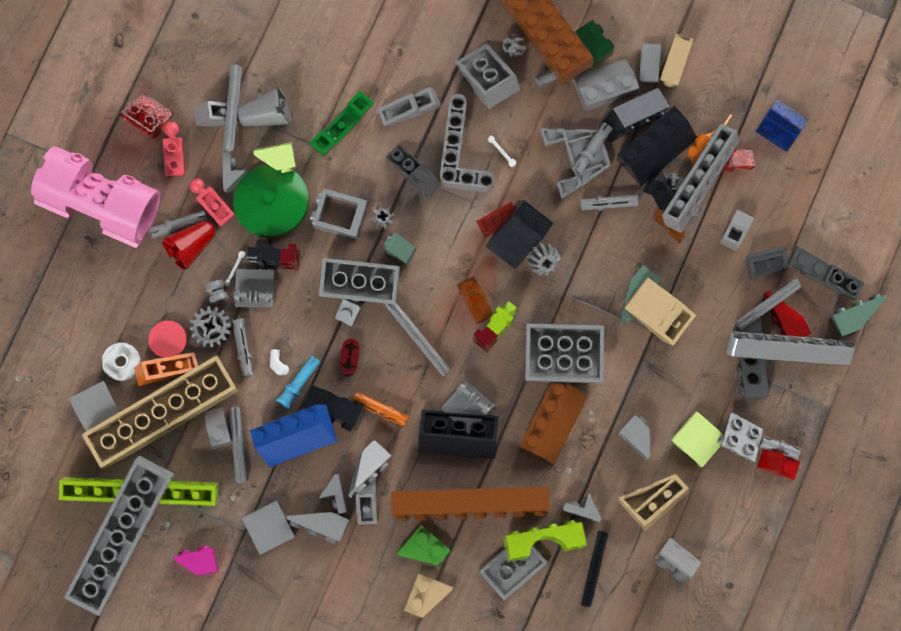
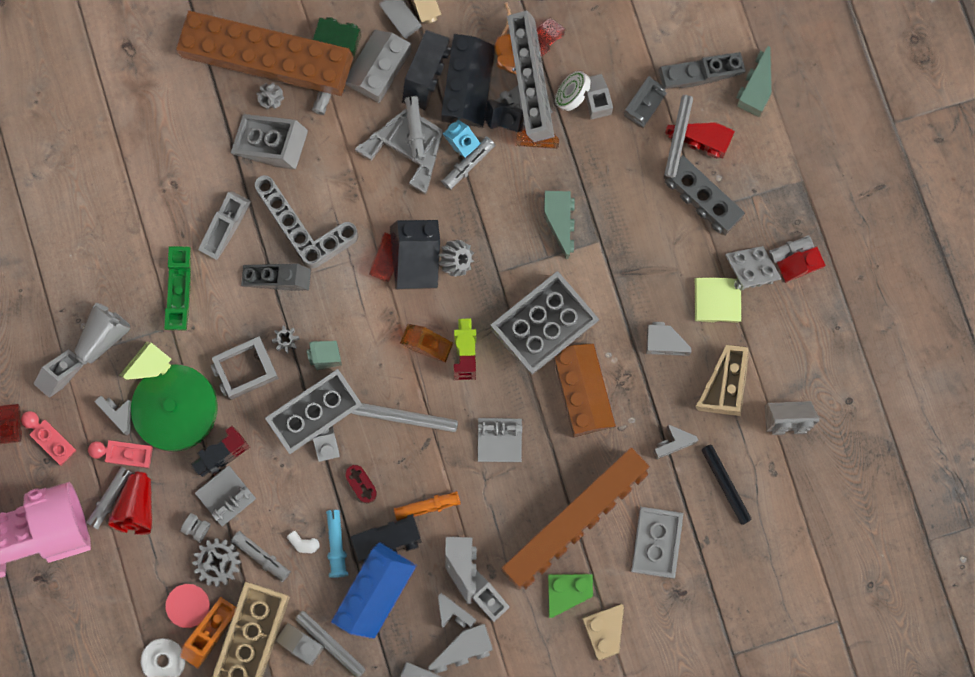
camera: 45 degrees left, 0 degrees up
(232, 108) = (68, 355): light grey axle -> none
(241, 254) = (188, 476): white hinge -> none
(448, 437) = (505, 480): black slope -> none
(512, 162) = (355, 198): white hinge -> none
(568, 536) = (682, 476): lime arch -> none
(618, 181) = (461, 138): none -> medium azure brick
(660, 312) = (594, 219): tan slope -> none
(722, 211) = (572, 90): none -> white tile
(790, 348) = (728, 158): light grey beam -> none

